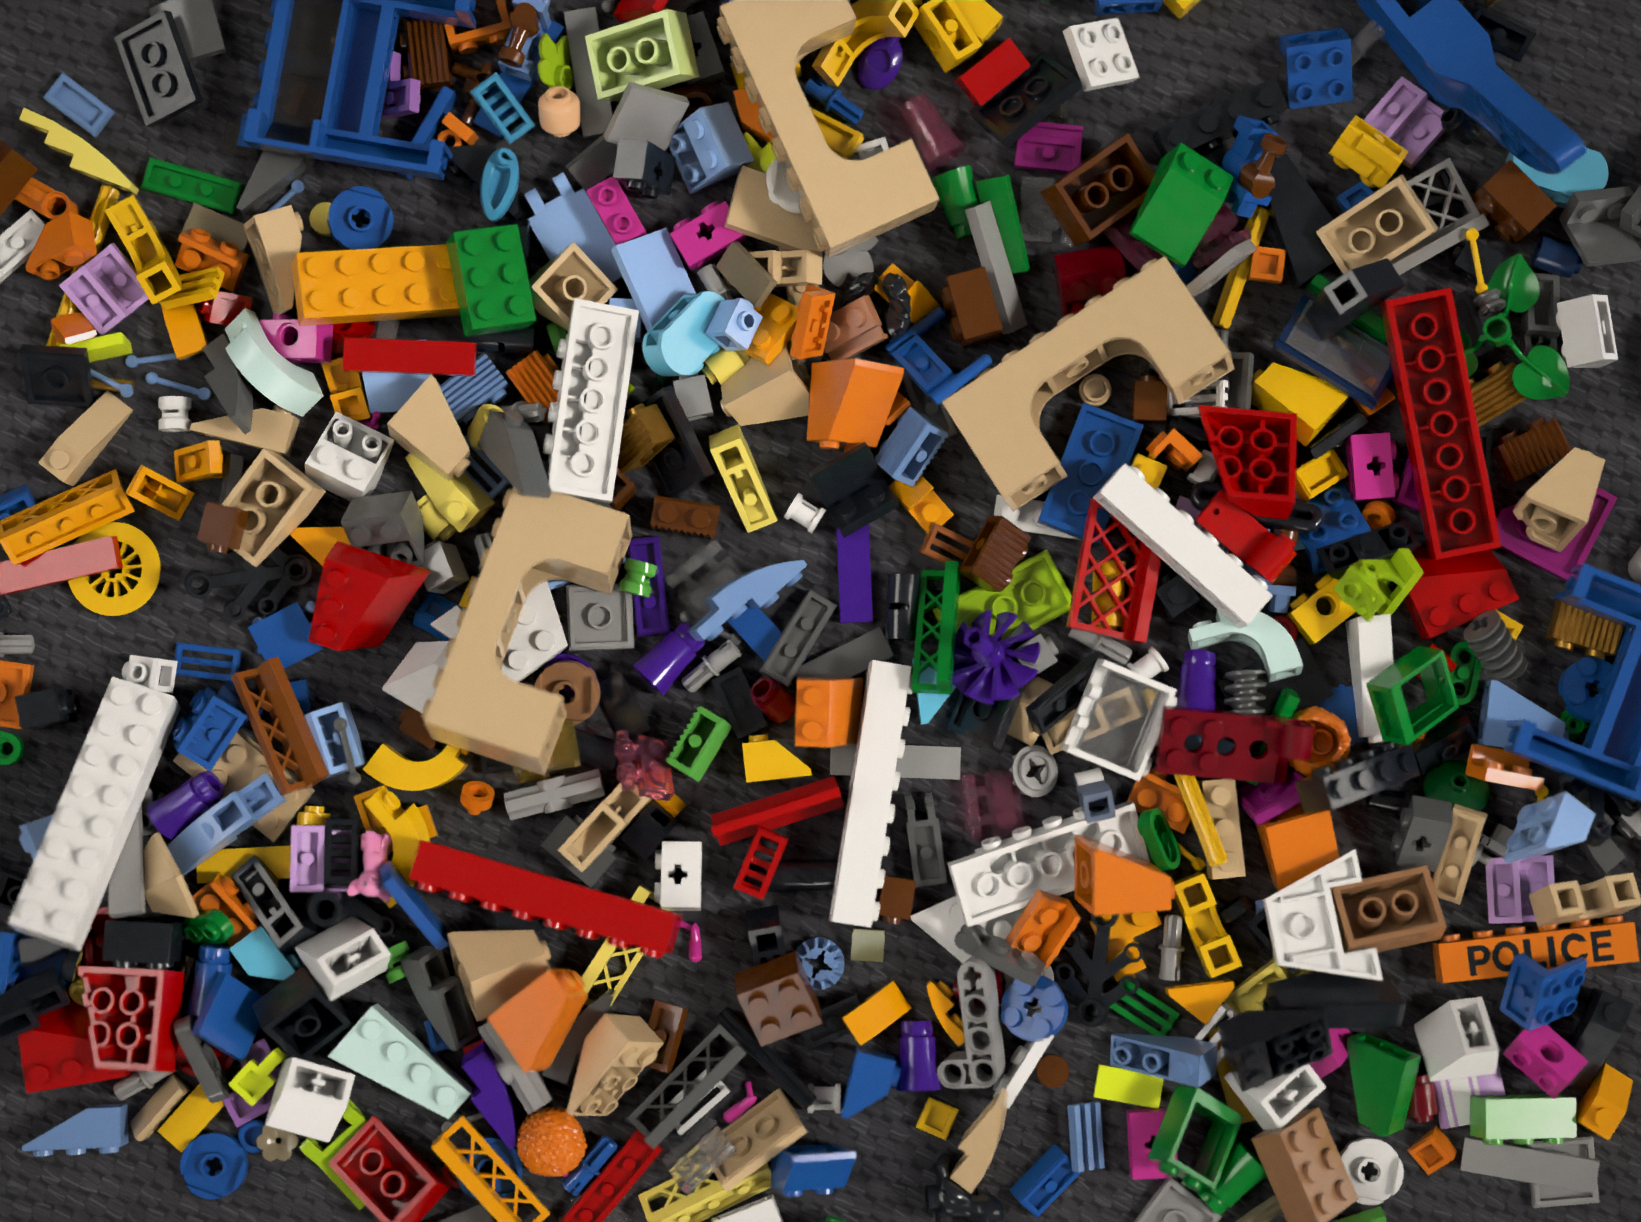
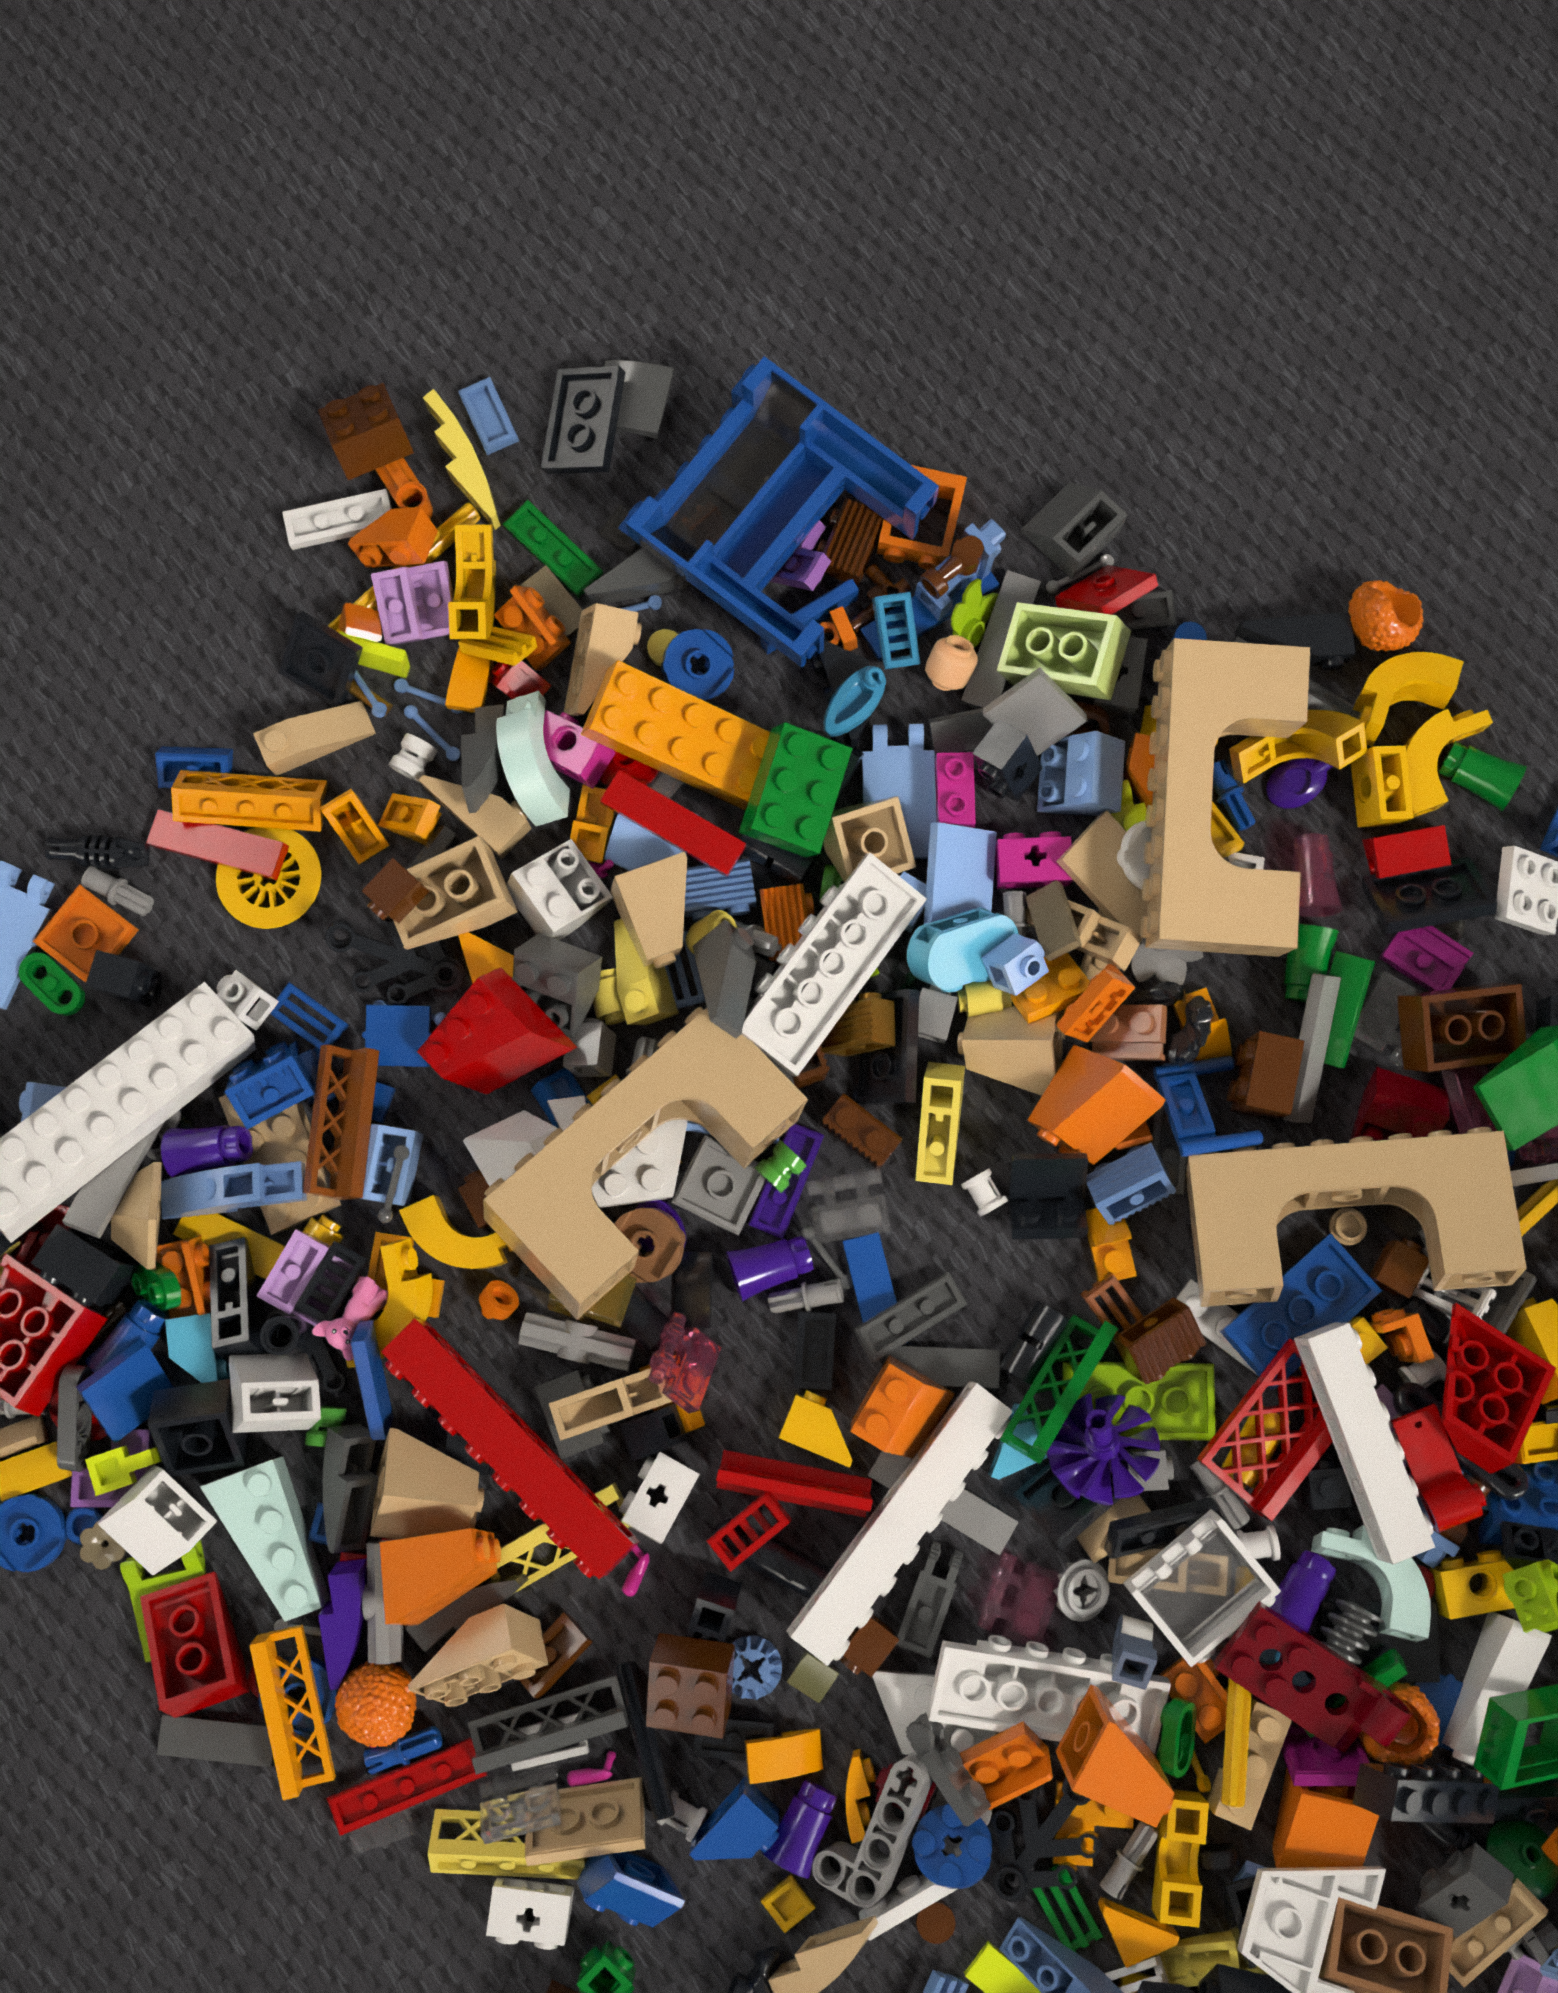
camera: 30 degrees right, 5 degrees down
(699, 743) = (751, 1371): bright green brick -> none
(753, 587) = (893, 1241): medium blue slope -> none
(773, 700) = (851, 1367): dark red brick -> none
(854, 576) = (1001, 1284): dark purple tile -> none

